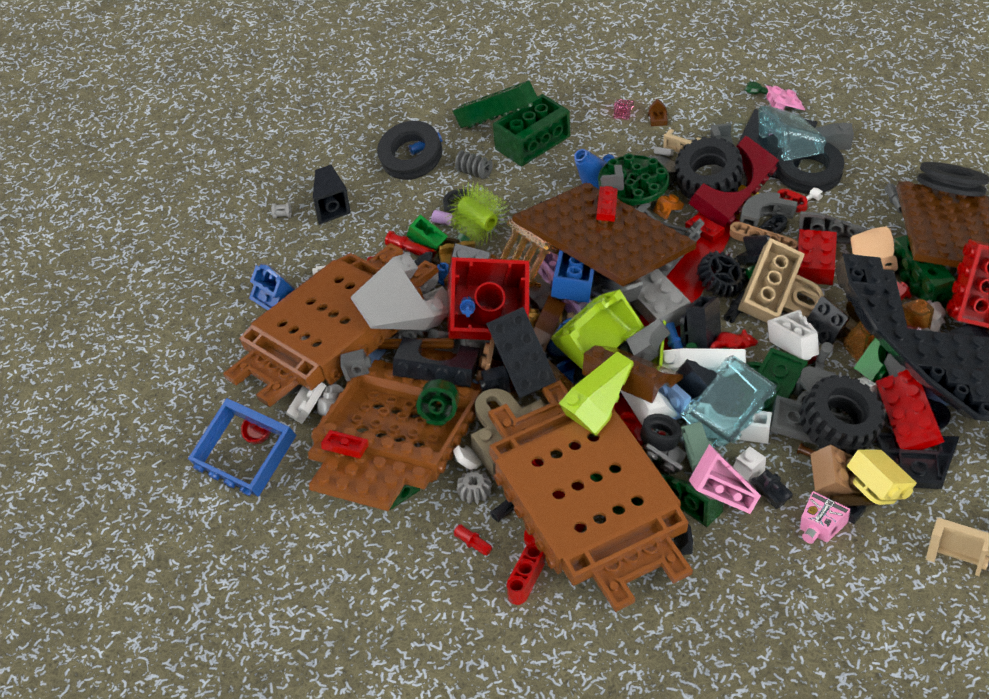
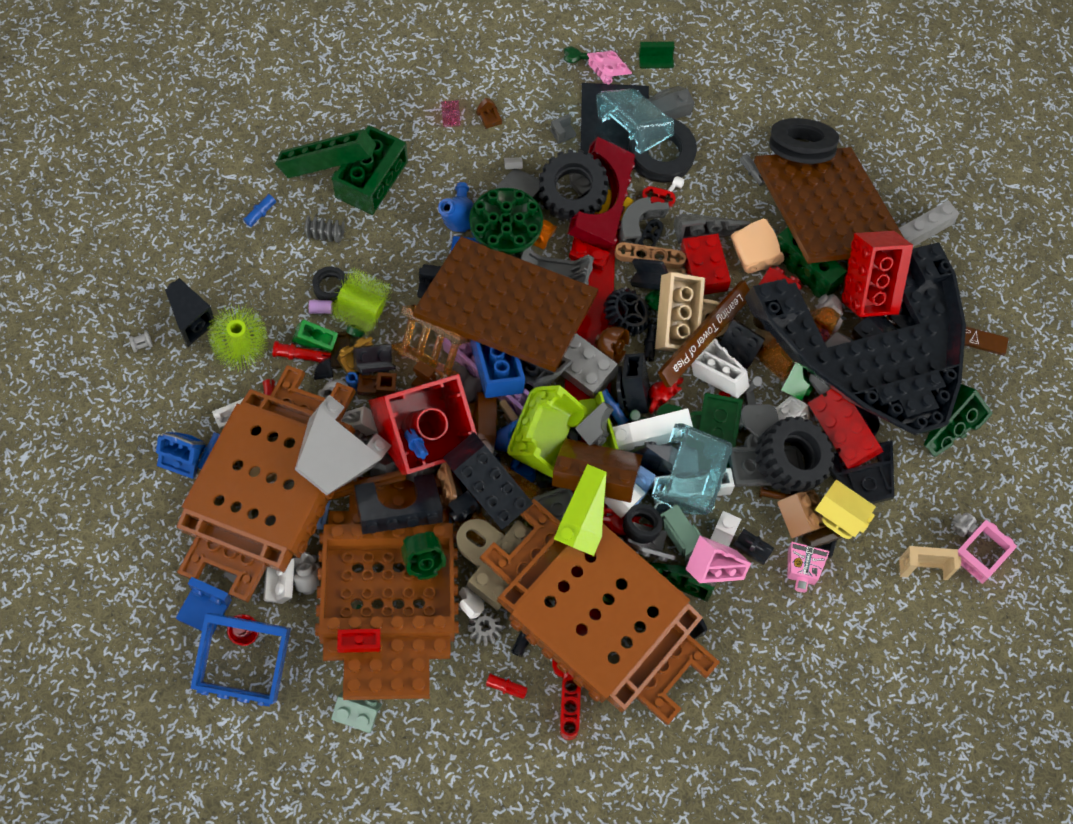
camera: 30 degrees left, 20 degrees up
(238, 393) = (202, 600): none -> blue bracket
(322, 520) = (356, 713): none -> sand green bracket
(355, 364) = (322, 535): dark grey brick -> none
(360, 218) = (238, 337): none -> lime piece
(416, 166) = (236, 206): black tyre -> none
(607, 203) = (497, 267): red plate -> none
(615, 180) = (491, 234): dark grey panel -> none
(674, 142) = (527, 149): tan hinge -> none
(696, 285) = (612, 342): none -> reddish brown cylinder
(783, 304) = (704, 335): none -> reddish brown tile
(834, 99) = (656, 55): none -> dark green panel

